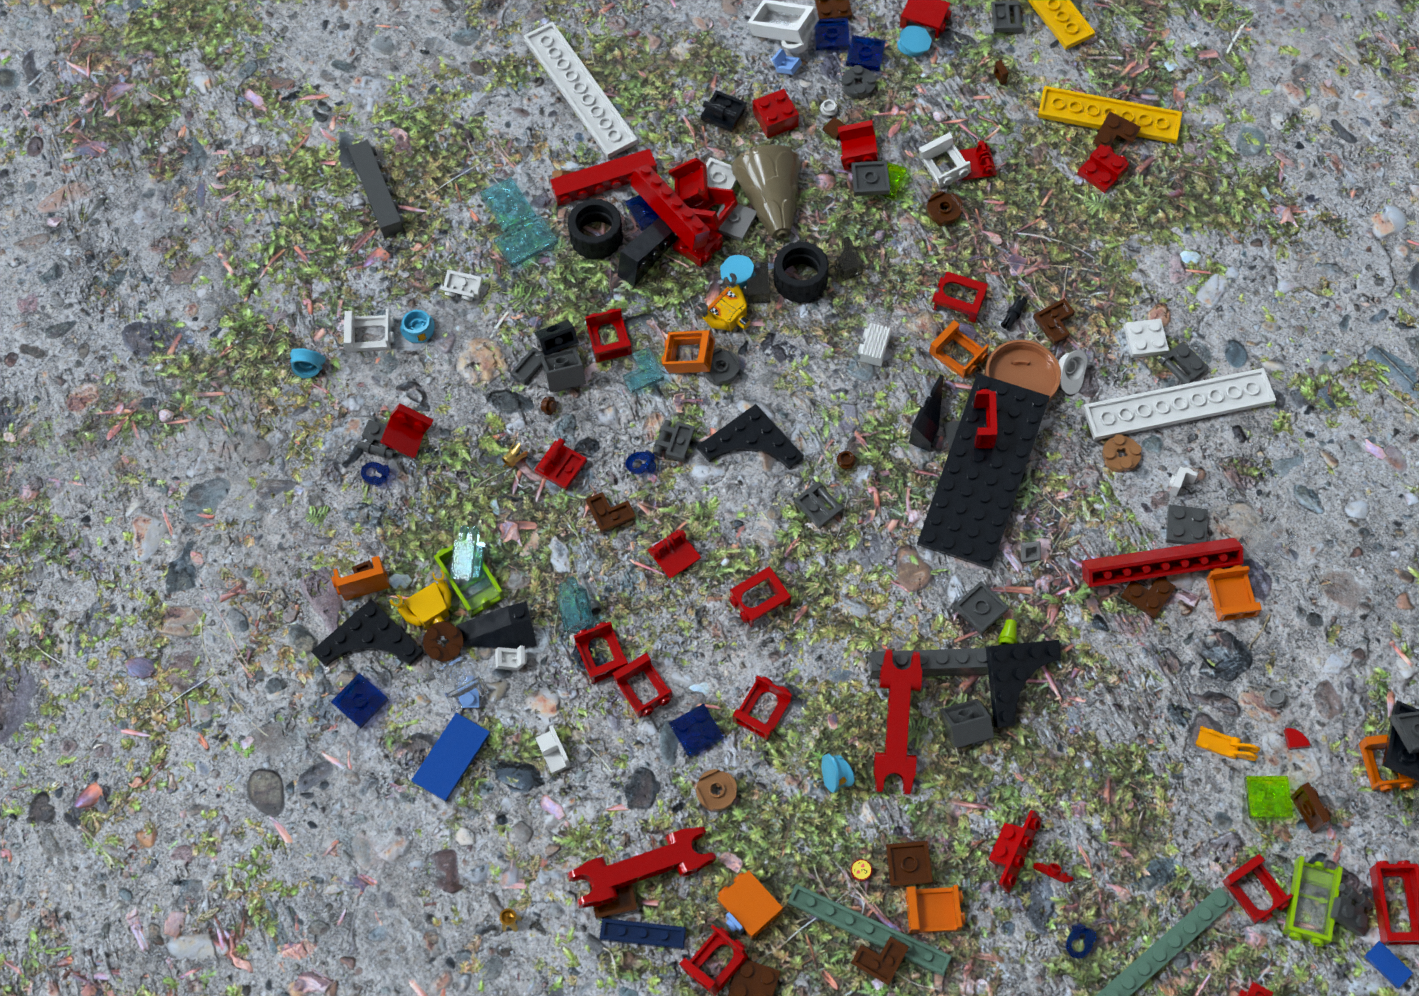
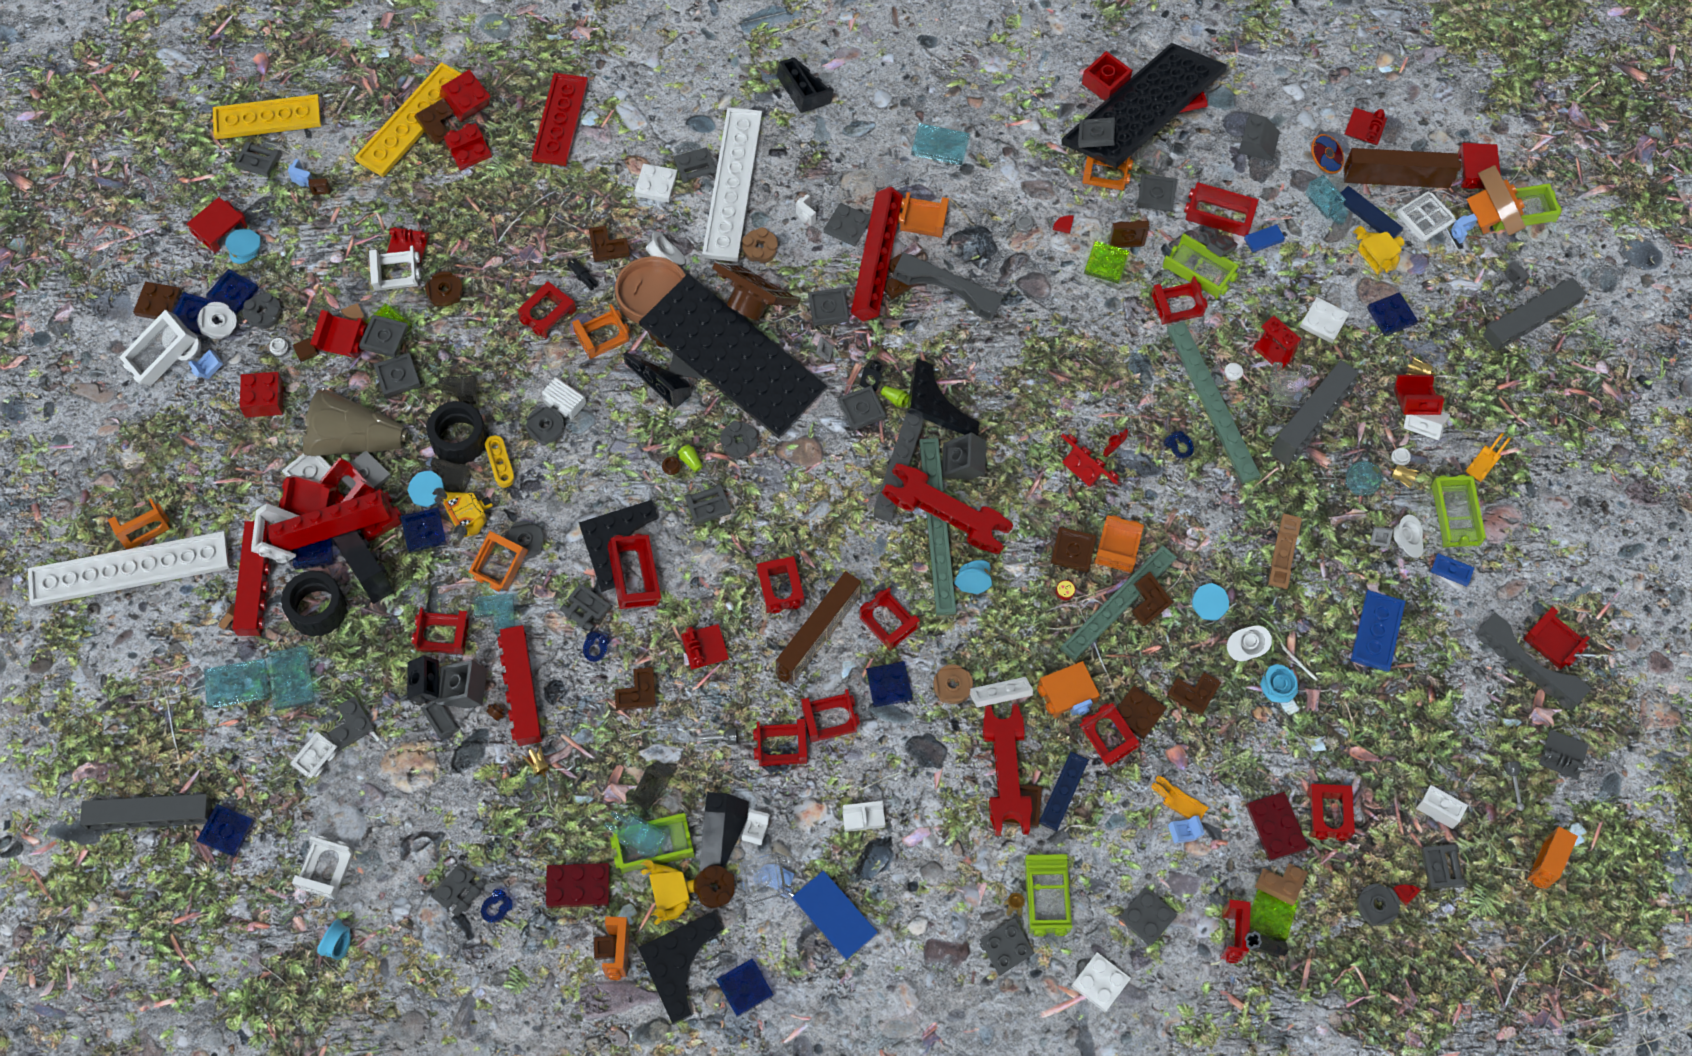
camera: 75 degrees left, 0 degrees up
(378, 249) = (225, 830): none -> clear blue plate
(405, 430) = (463, 859): red bracket -> none
(413, 530) = (577, 885): none -> dark red plate
(417, 326) = (340, 817): medium azure hat -> none
(465, 924) = (1006, 946): none -> dark grey hinge
(501, 306) = (355, 727): none -> dark grey plate
(523, 555) = (652, 784): none -> clear smoke arch
(528, 949) = (1047, 894): none -> lime door
(560, 464) = (566, 720): red plate -> none
(574, 606) = (726, 751): clear light blue hinge -> none
(580, 415) = (520, 686): none -> red brick
(606, 71) = (122, 531): none -> orange panel
(658, 157) = (273, 515): none -> white panel
(698, 284) = (423, 530): none -> clear blue plate
(723, 110) = (231, 441): black plate -> none
(723, 838) = (1001, 692): none -> white plate
(724, 643) = (818, 628): none -> reddish brown brick
(737, 441) = (640, 544): none -> red piece
(794, 312) = (497, 455): none -> yellow plate
(834, 43) = (213, 330): none -> white plate
(838, 349) = (548, 434): none -> dark grey plate
(840, 206) = (397, 375): none -> dark grey plate
(860, 473) = (690, 458): none -> lime cone
(876, 722) = (938, 533): none -> sand green plate
(888, 149) = (353, 312): none -> medium nougat tile
(894, 499) = (740, 449): none -> dark grey plate
(986, 436) = (710, 334): red panel -> none
(1006, 48) = (299, 175): none -> light blue bracket
(1028, 604) = (875, 369): none -> black bracket
(1061, 459) = (751, 291): none -> reddish brown piece
(1081, 539) = (828, 307): none -> dark grey plate
(1153, 142) = (465, 95): none -> red brick
(1155, 601) = (915, 271): none -> dark grey arch
(1173, 231) = (560, 119): none -> red plate
(1196, 975) = (1233, 371): none -> white plate
(1225, 745) = (1051, 275): light orange arm -> none
(1325, 427) = (803, 87): none -> black wedge
(1330, 583) = (940, 144): none -> clear light blue plate
(1386, 826) = (1157, 192): none -> dark grey plate

